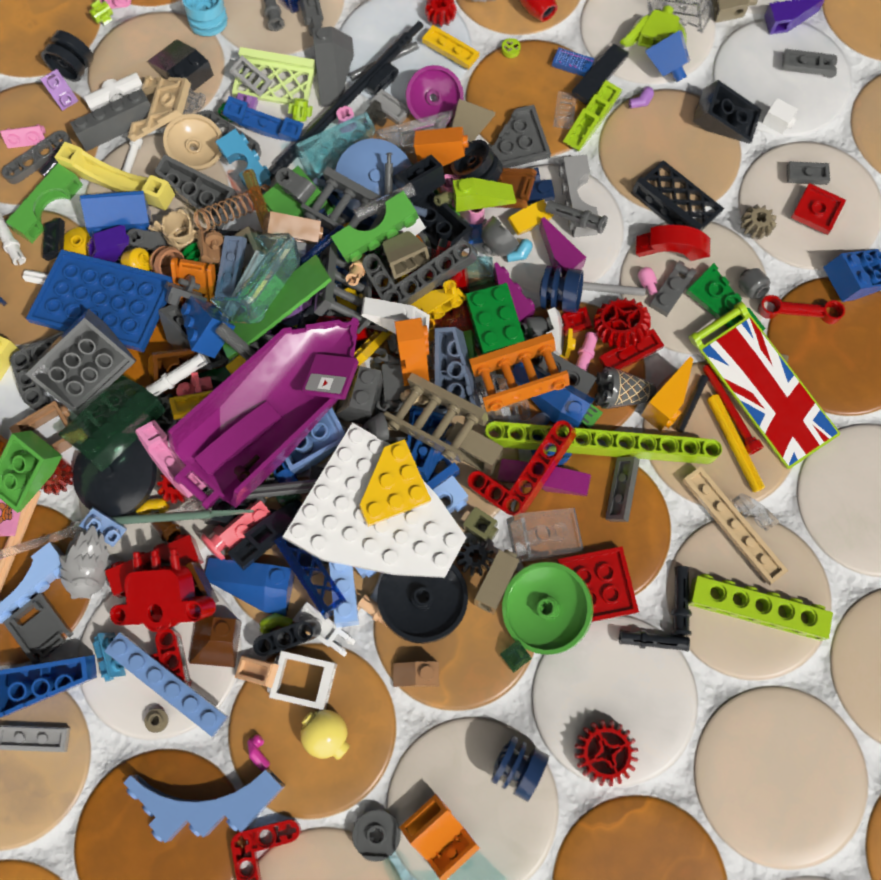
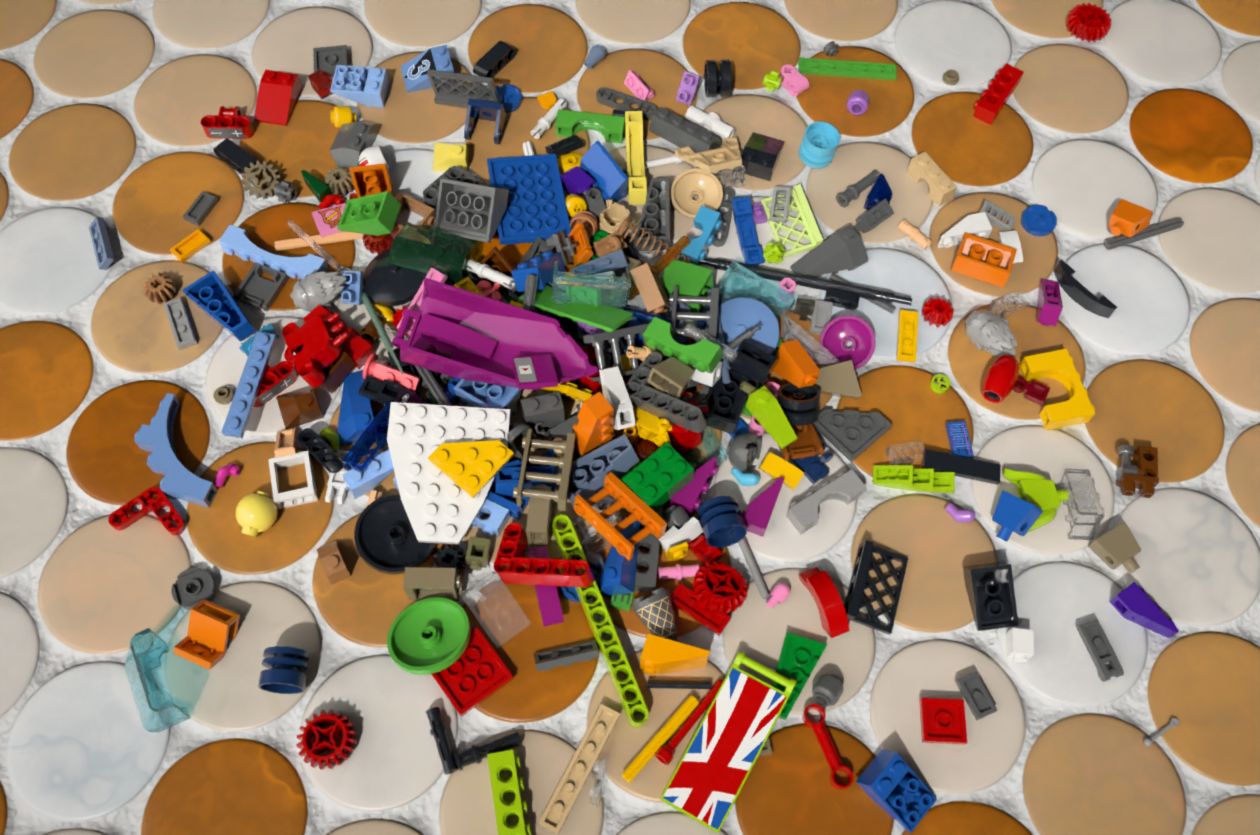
camera: 60 degrees right, 10 degrees down
(295, 185) = (689, 274): dark grey piece -> none
(515, 656) = (379, 630): clear green tile -> none
(586, 216) = (798, 510): dark grey pin -> none
(672, 289) = (783, 621): dark grey plate -> none
(758, 221) = (902, 669): dark tan gear -> none

